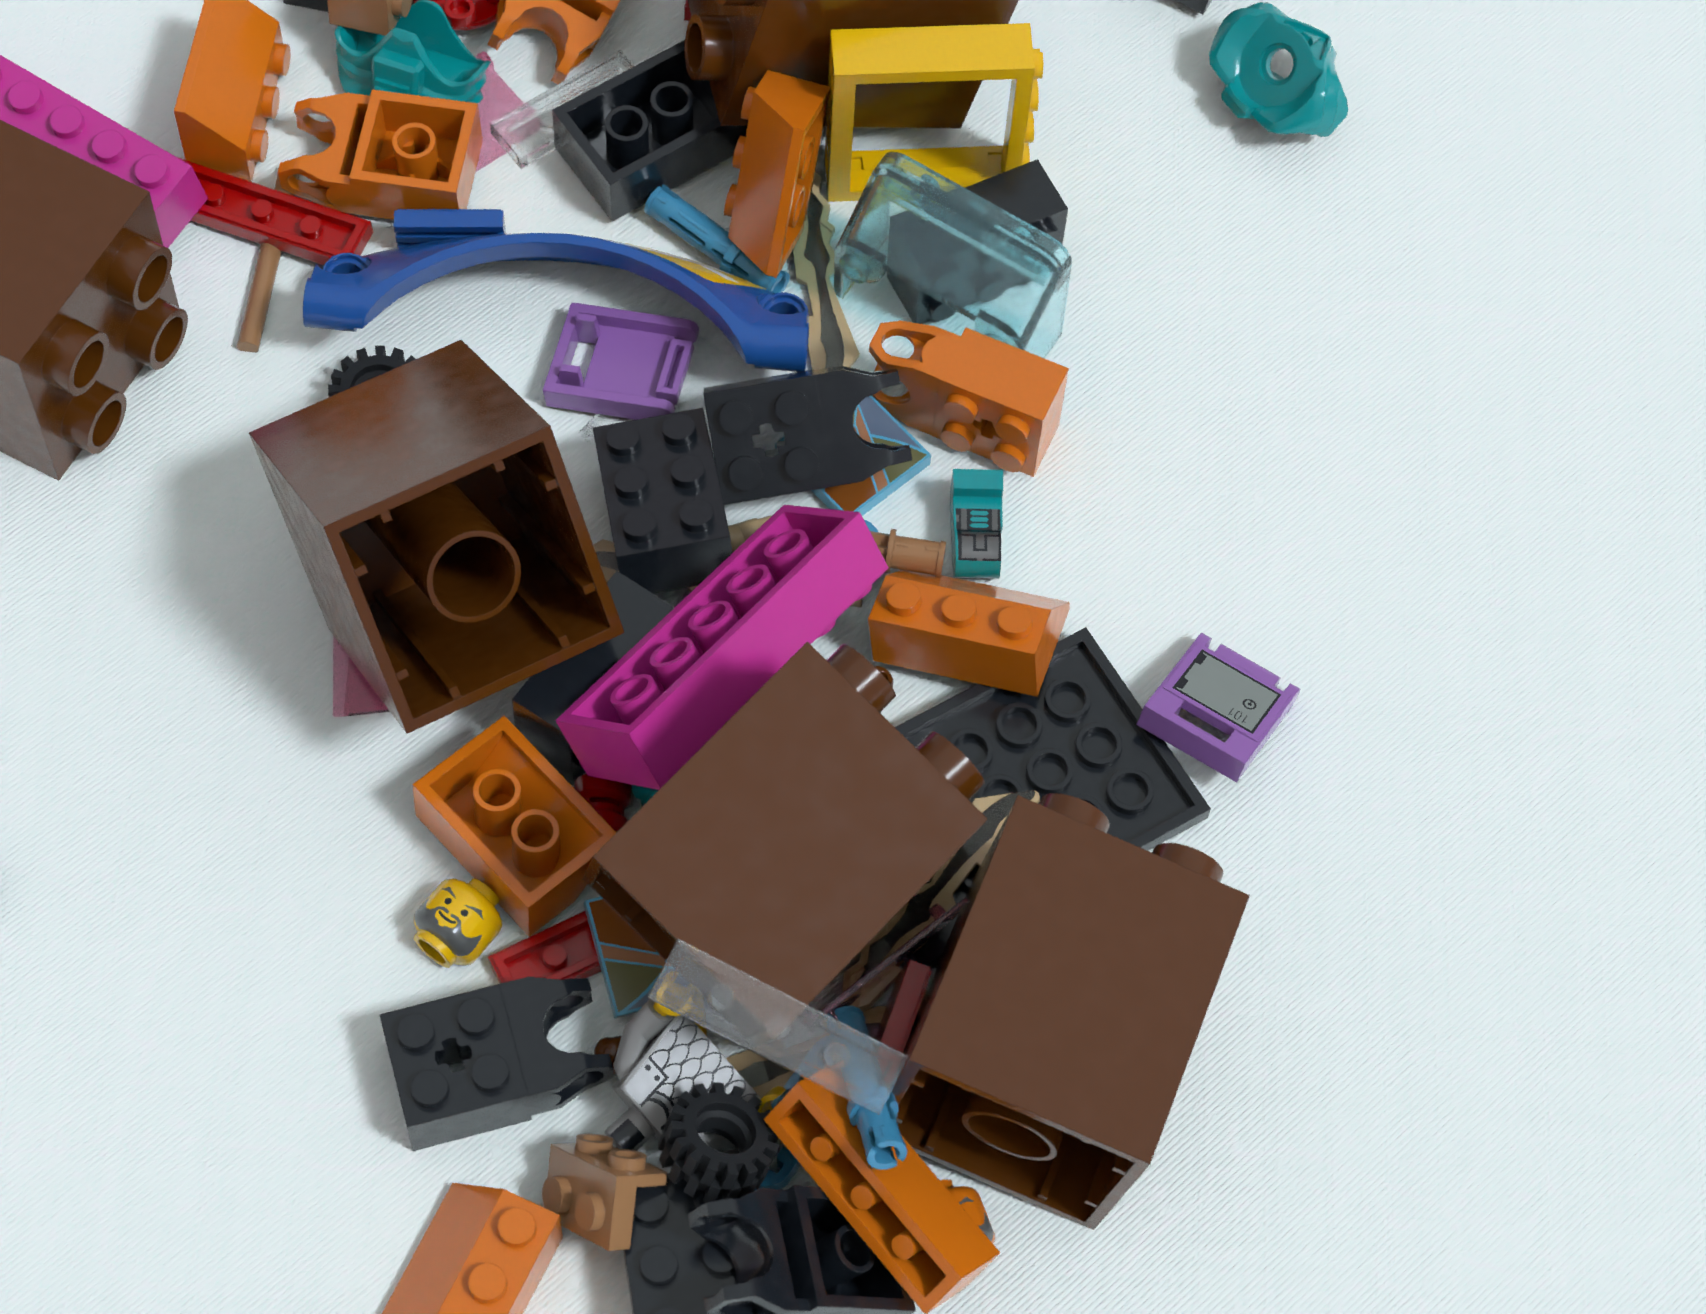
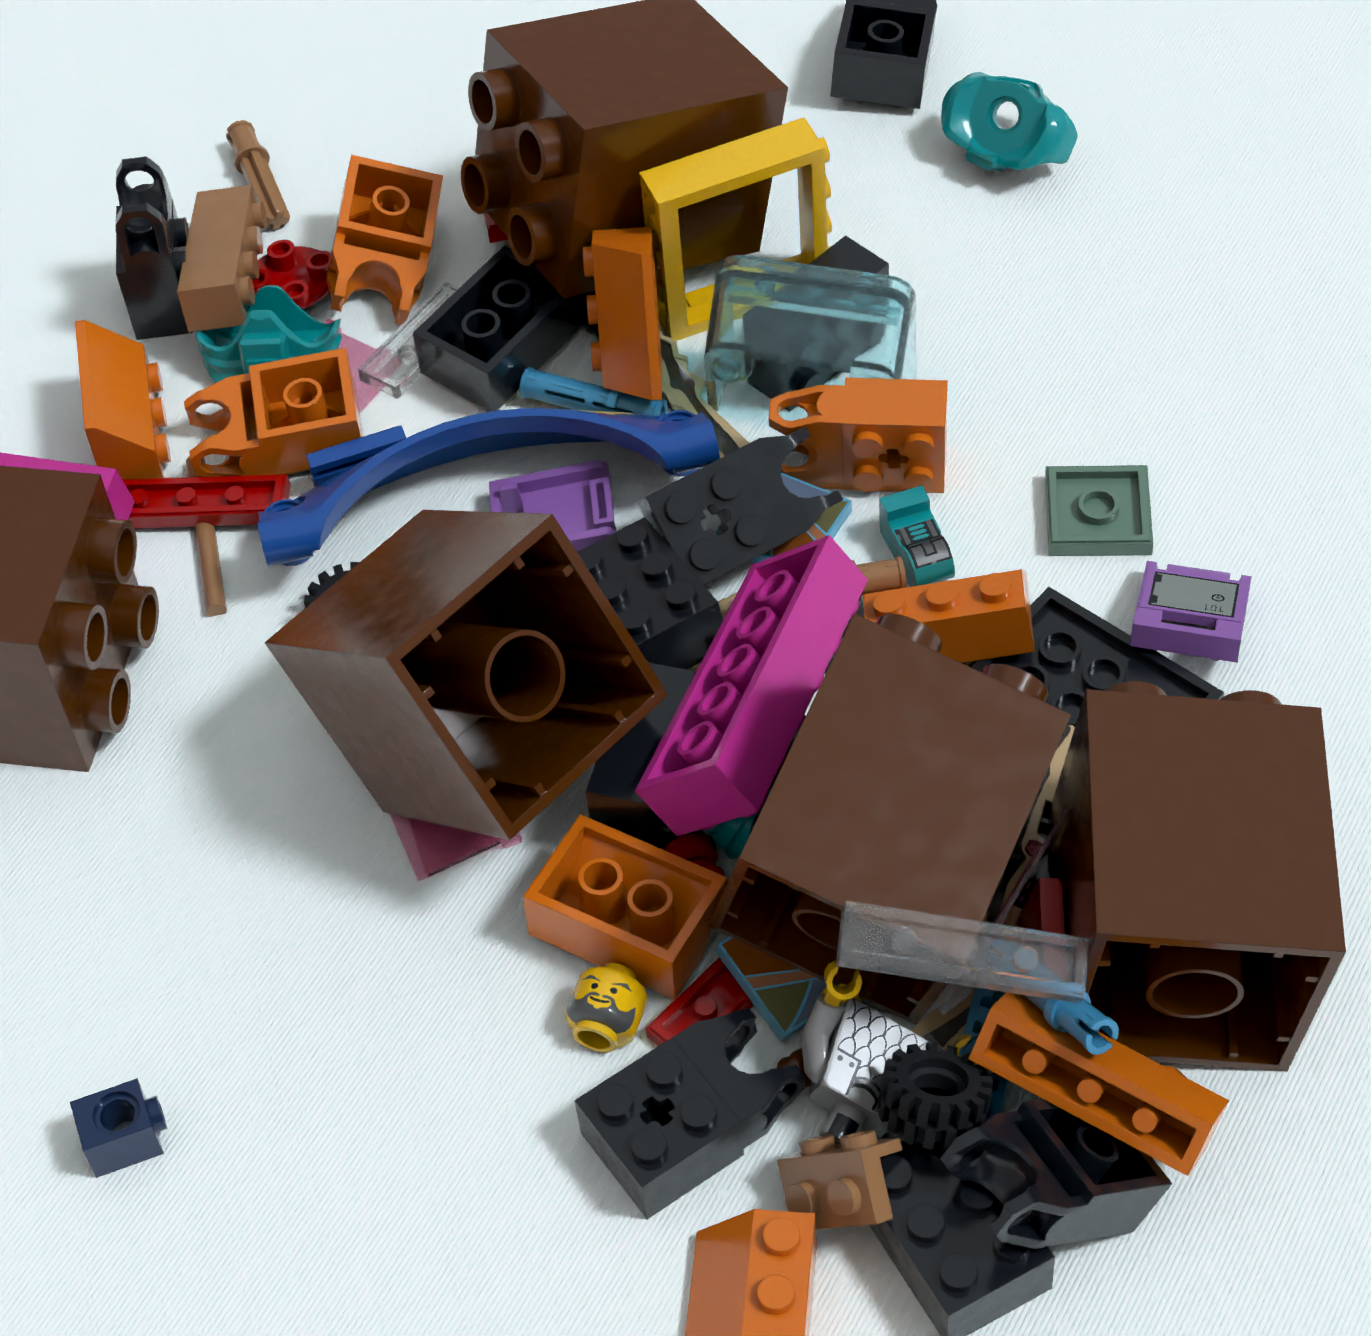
camera: 10 degrees left, 10 degrees down
(1180, 555) = (1098, 510): none -> sand green tile

